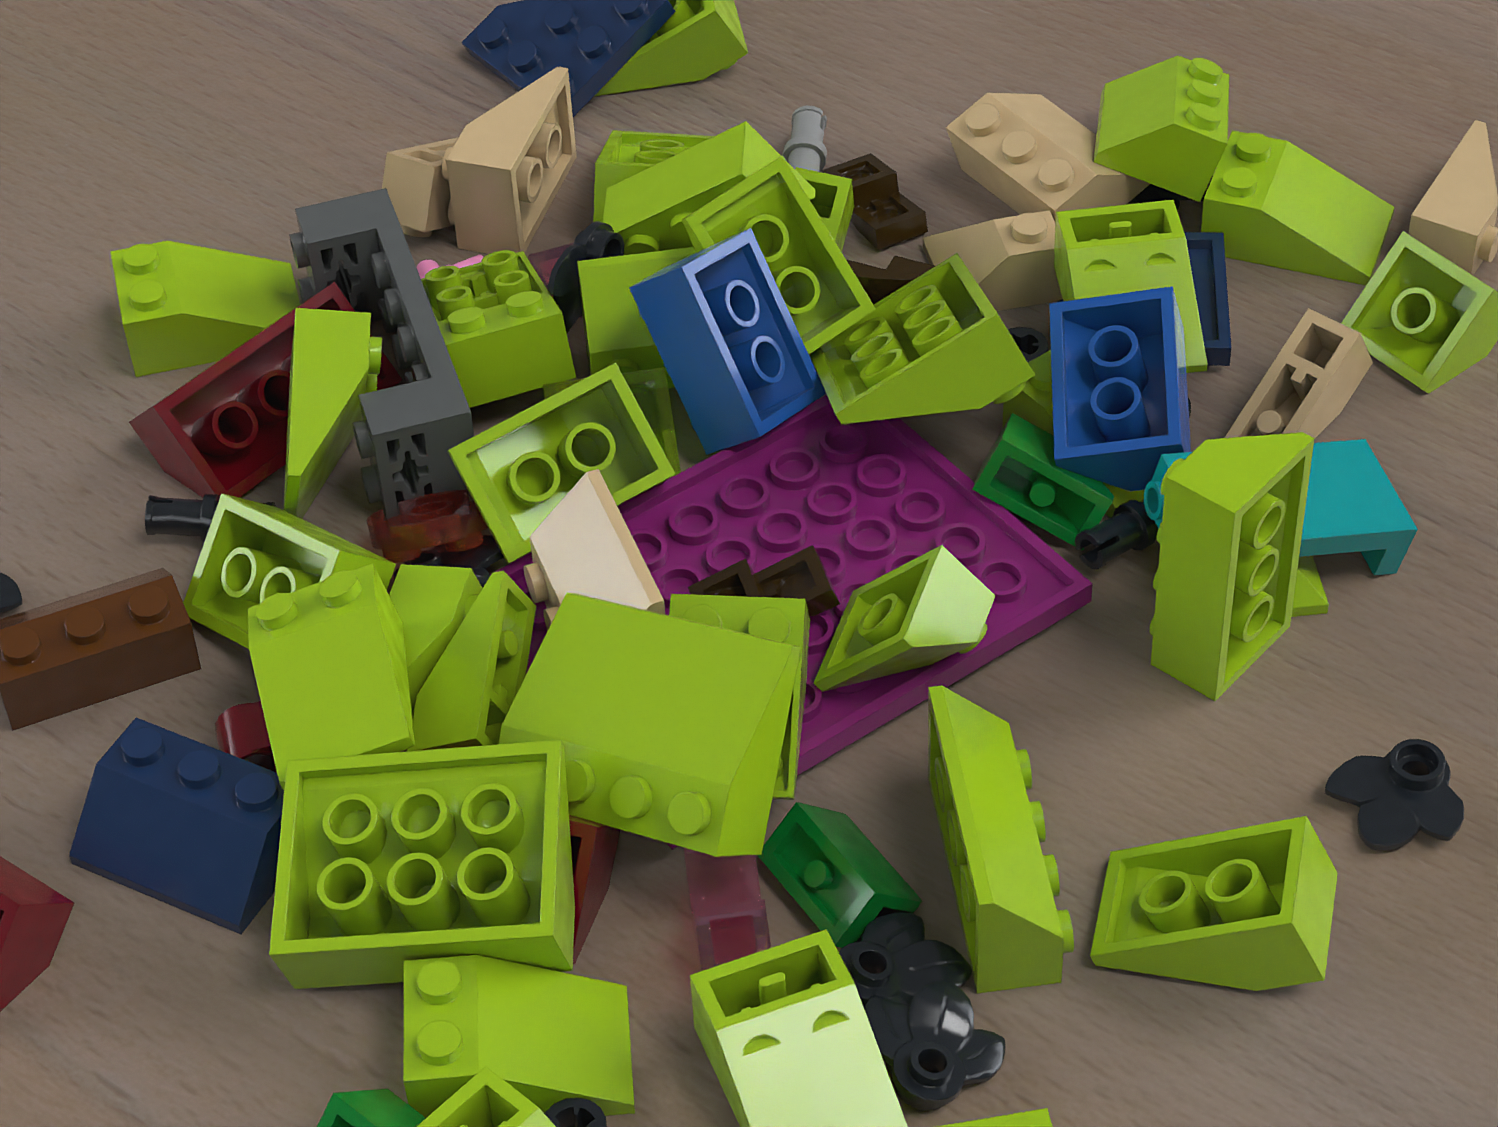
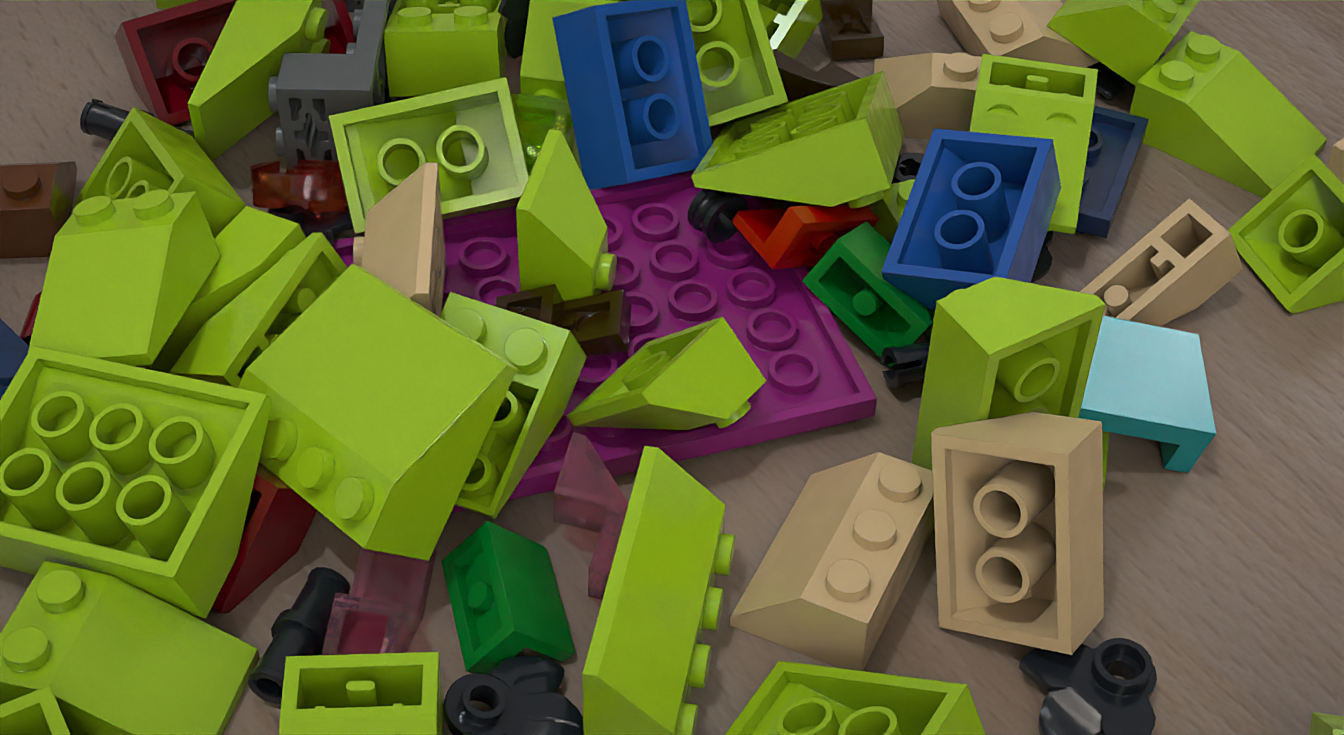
camera: 15 degrees right, 0 degrees up
(664, 960) = (298, 631): none -> black pin
(733, 501) = (561, 227): none -> lime slope
(862, 444) = (713, 214): none -> black bush
(885, 754) = (591, 501): none -> clear pink slope
(949, 445) = (799, 233): none -> red panel
(1125, 741) = (841, 560): none -> tan slope
(1290, 666) = (1020, 528): none -> tan slope

